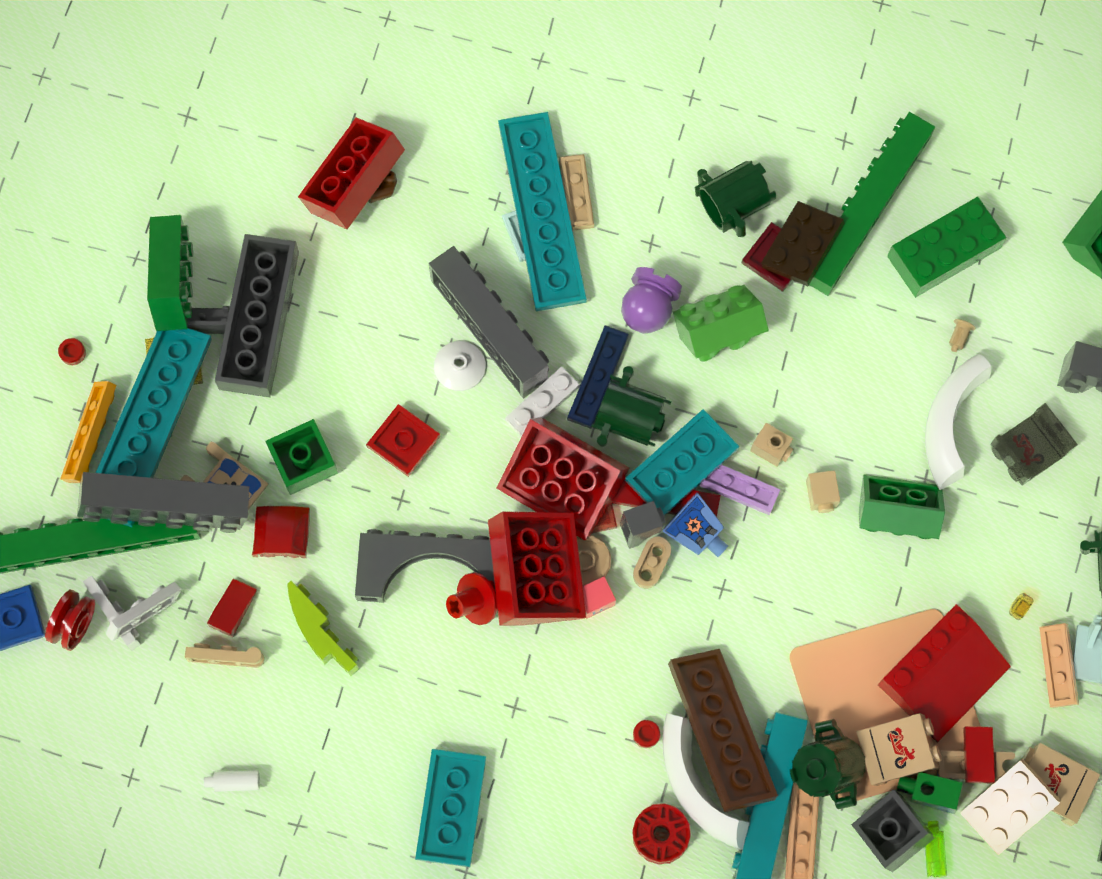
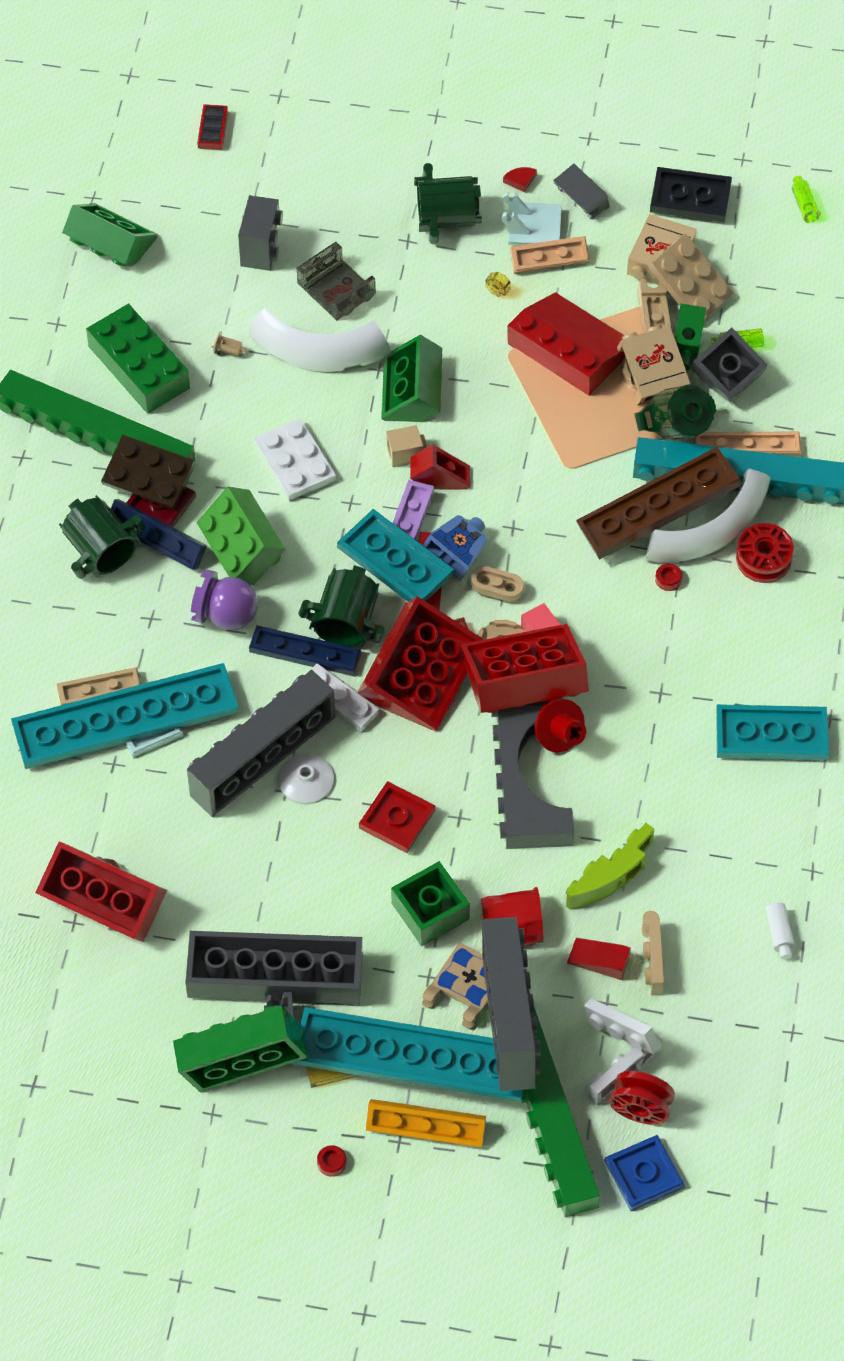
camera: 95 degrees left, 15 degrees down
(641, 523) = (465, 587): dark grey arch -> none
(738, 251) = (163, 536): none -> dark blue tile
(772, 445) = (362, 491): tan brick -> none
(789, 522) = (439, 469): none -> red slope
(819, 386) = (294, 459): none -> white plate
(979, 754) = (647, 304): red tile -> none

